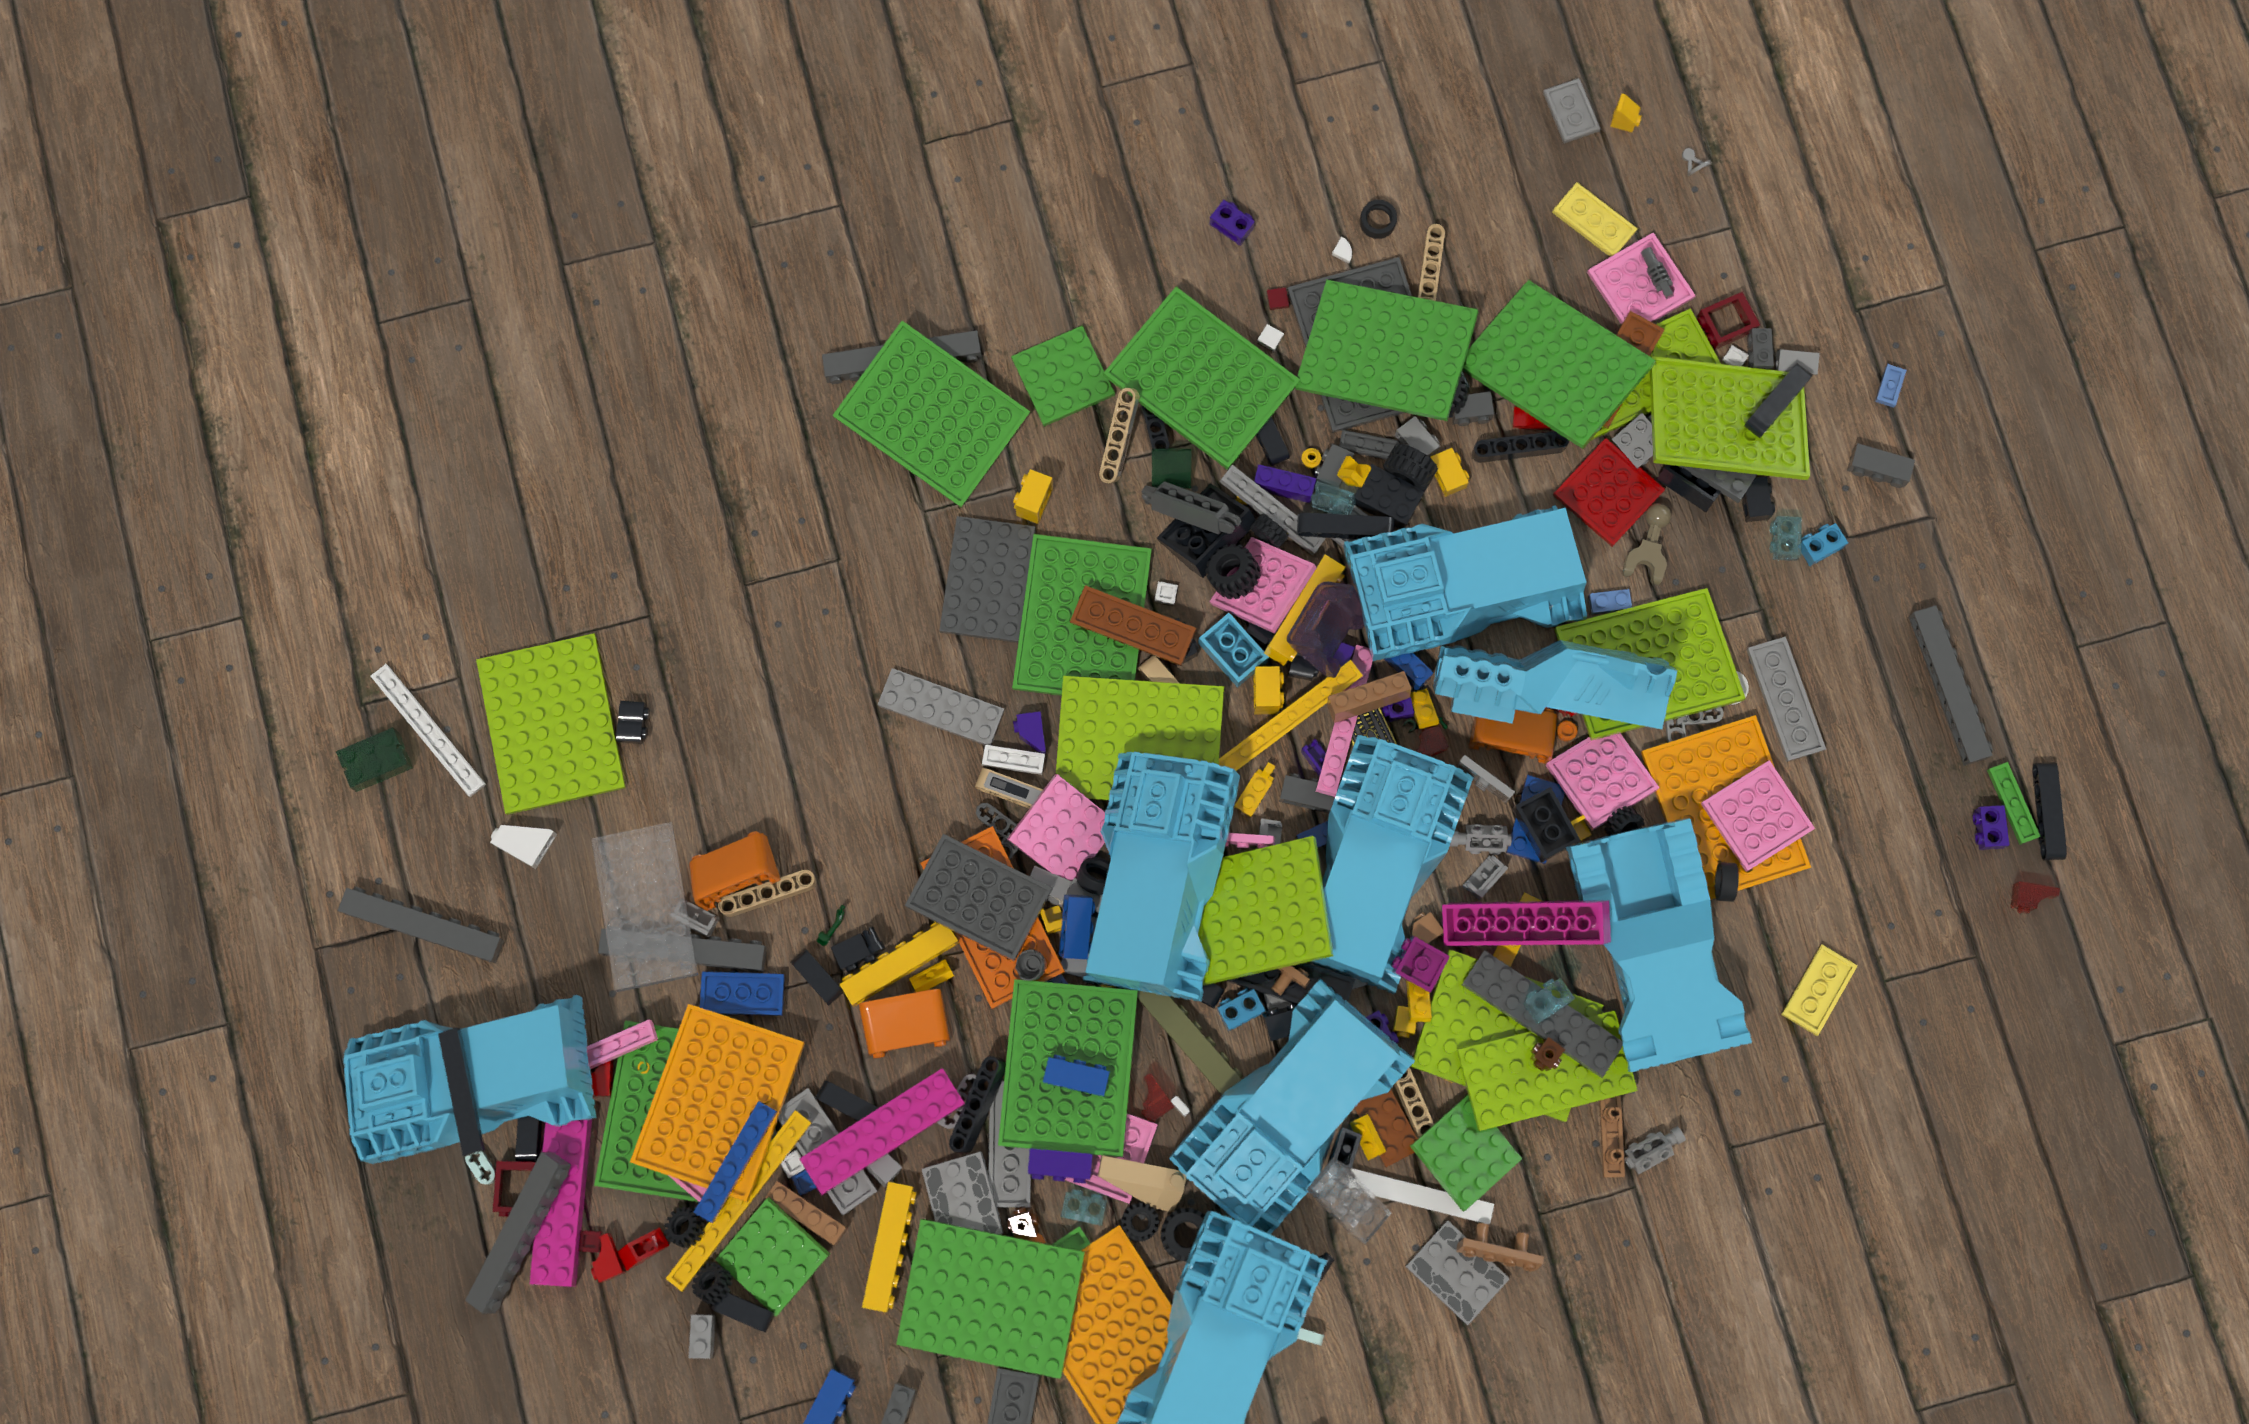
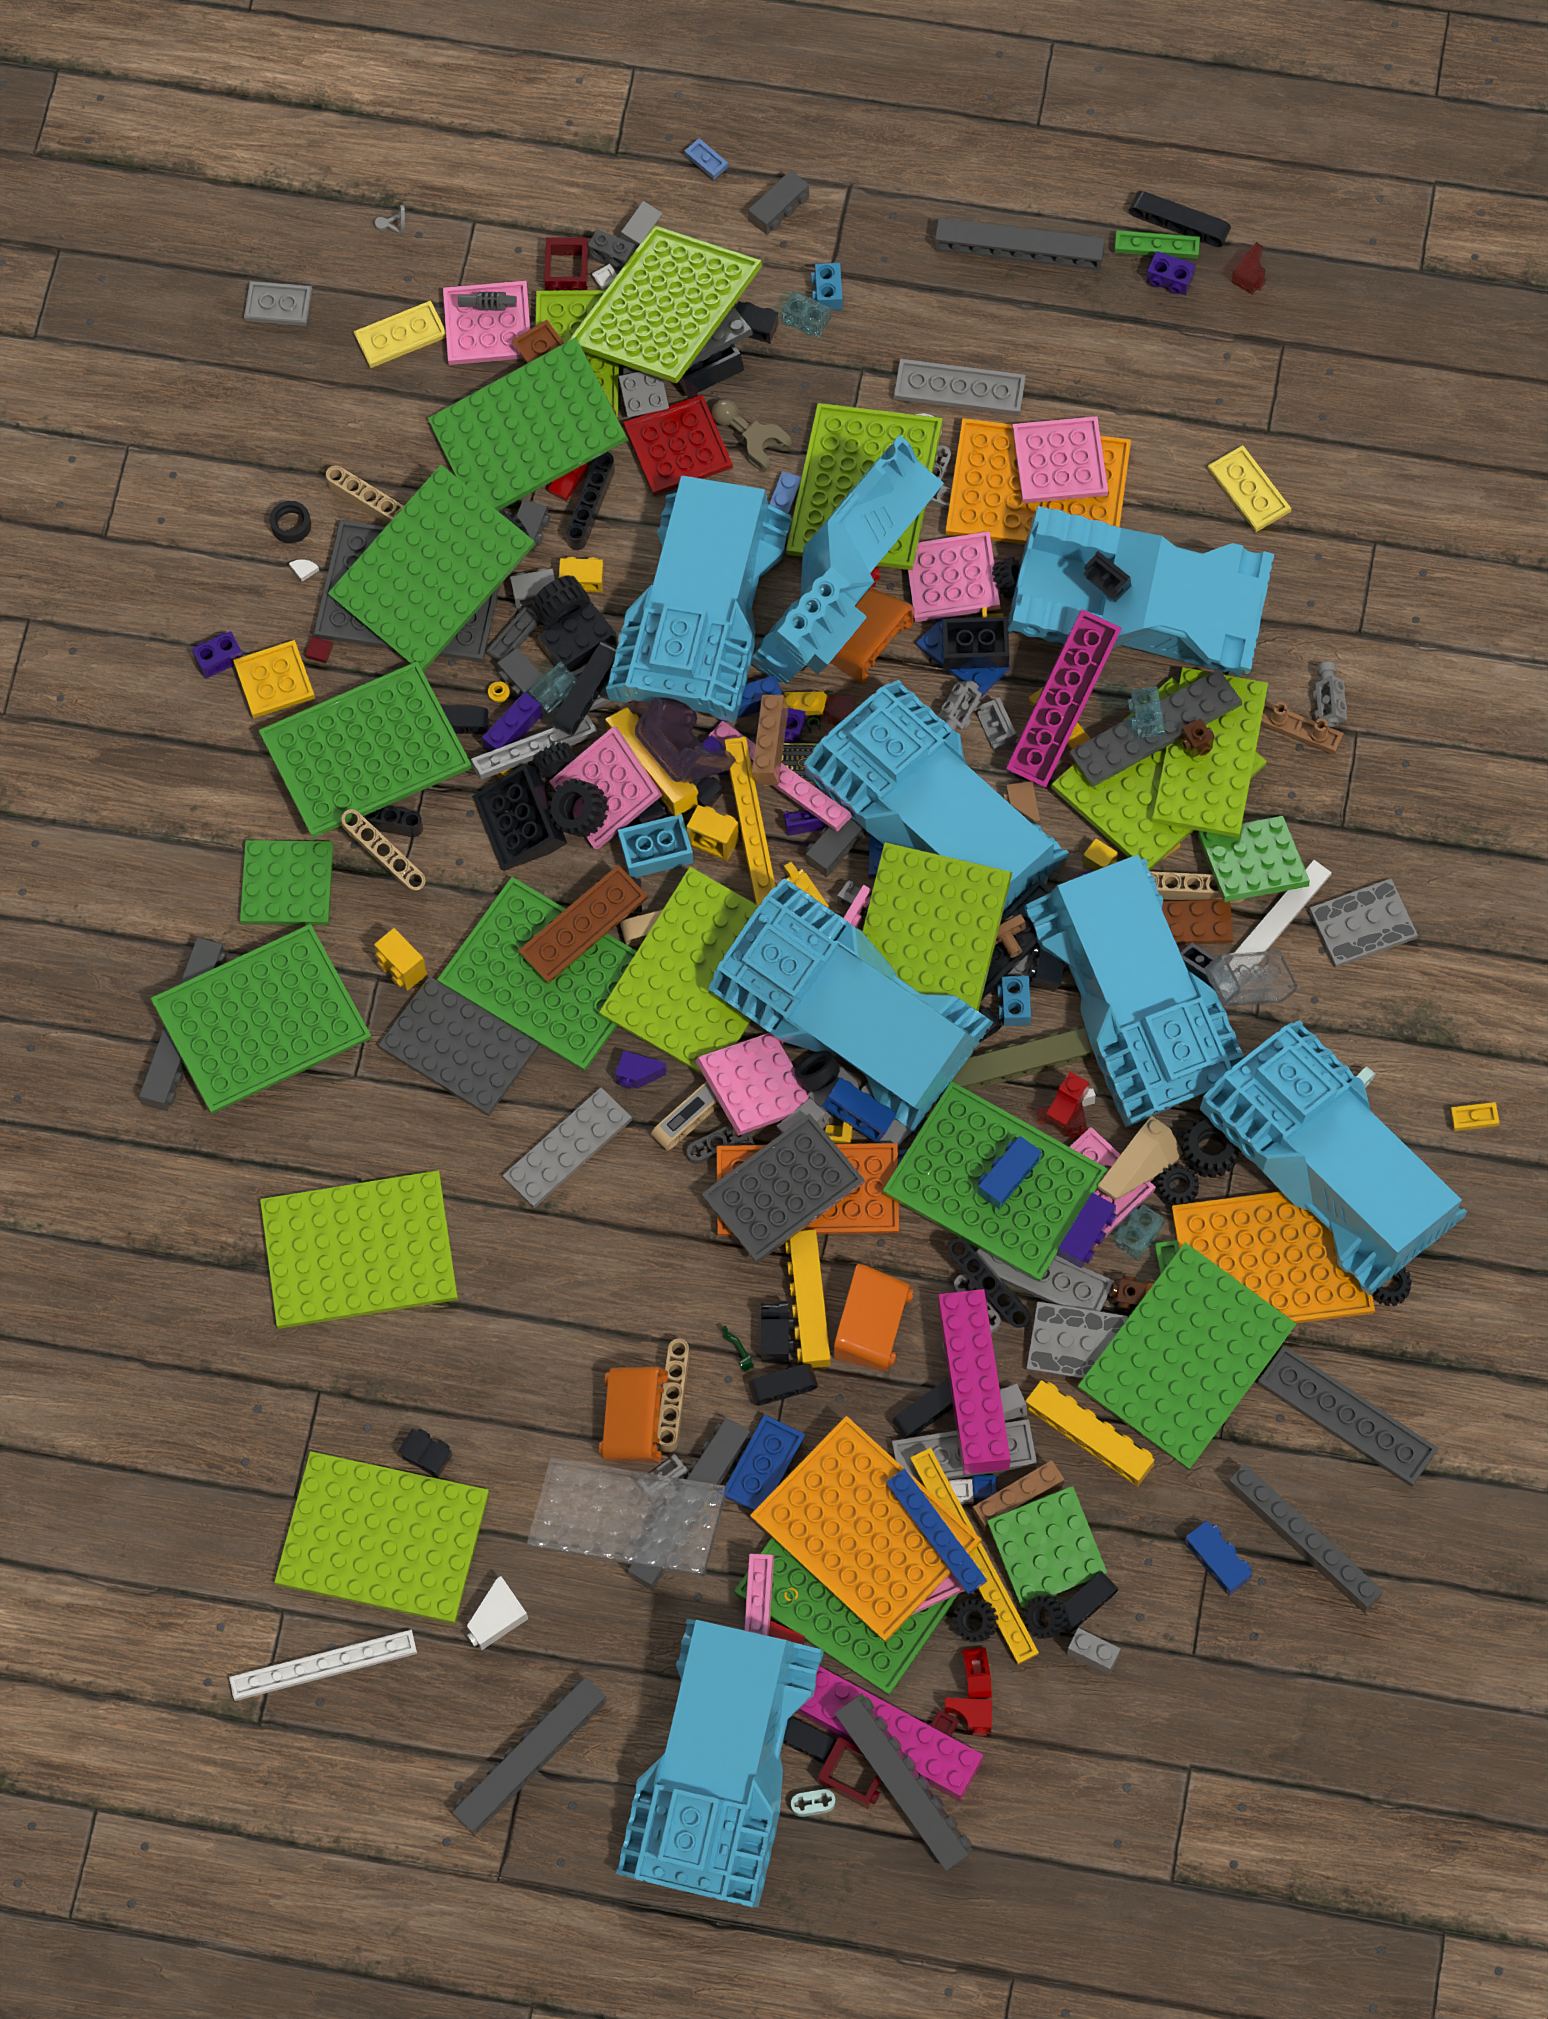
camera: 60 degrees left, 10 degrees down
(374, 759) = (328, 1729): clear green piece -> none
(461, 1092) = (736, 1757): black tile -> none
(779, 587) = (358, 1249): none -> lime plate
(931, 976) = (838, 1274): yellow plate -> none
(1013, 759) = (657, 1101): white plate -> none
(1030, 965) = (876, 1168): dark grey hair -> none
(1165, 1095) = (1068, 1099): none -> red arch
(1166, 593) = (563, 886): white tile -> none
(1171, 467) = (440, 821): clear green tile -> none
(1191, 508) = (493, 817): dark grey hinge -> none
(1233, 276) = (274, 679): none -> yellow plate
(1270, 337) = (355, 674): white tile -> none
(1353, 473) = (538, 656): yellow panel -> none
(1370, 1140) = (1205, 939): yellow plate -> none
(1418, 1003) = (1079, 832): yellow plate -> none
(1419, 963) = (1053, 812): magenta plate -> none
(1485, 780) = (909, 668): light grey plate -> none
(1492, 1253) = (1373, 862): medium nougat plate -> none
(1566, 731) = (891, 587): orange tile -> none
(1626, 114) = (311, 256): yellow slope -> none
(1651, 908) = (1107, 576): none -> black hinge
(1726, 881) = (1110, 510): black tyre -> none
(1778, 400) = (672, 253): black beam -> none

